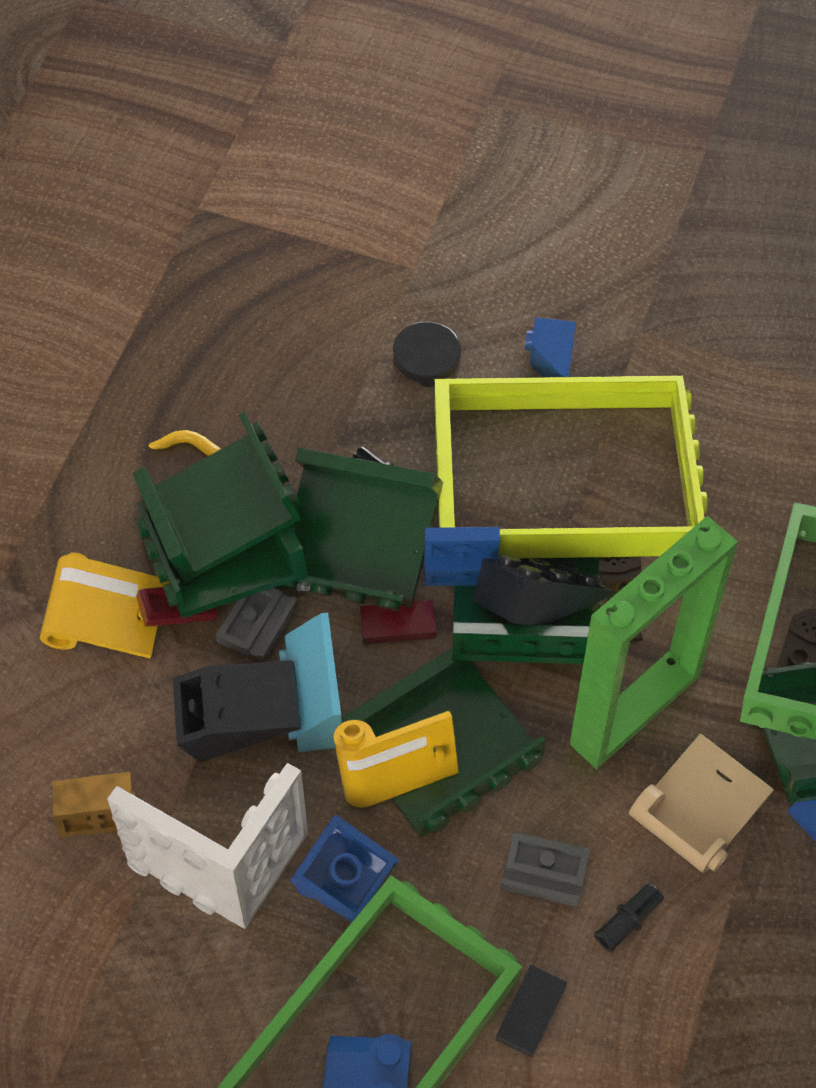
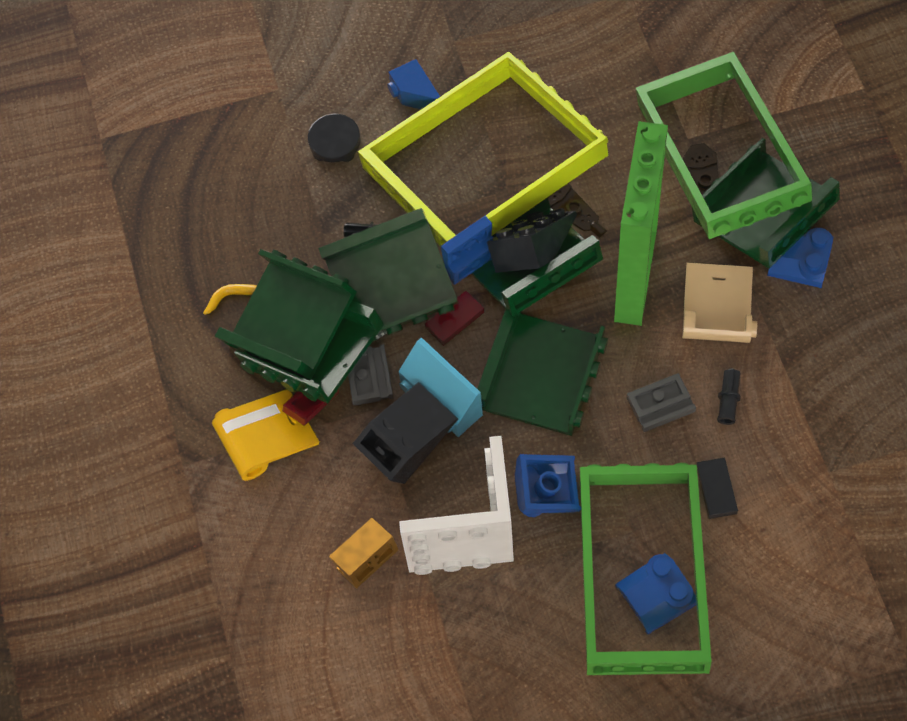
camera: 30 degrees left, 5 degrees up
(396, 761) = (522, 409): yellow door -> none

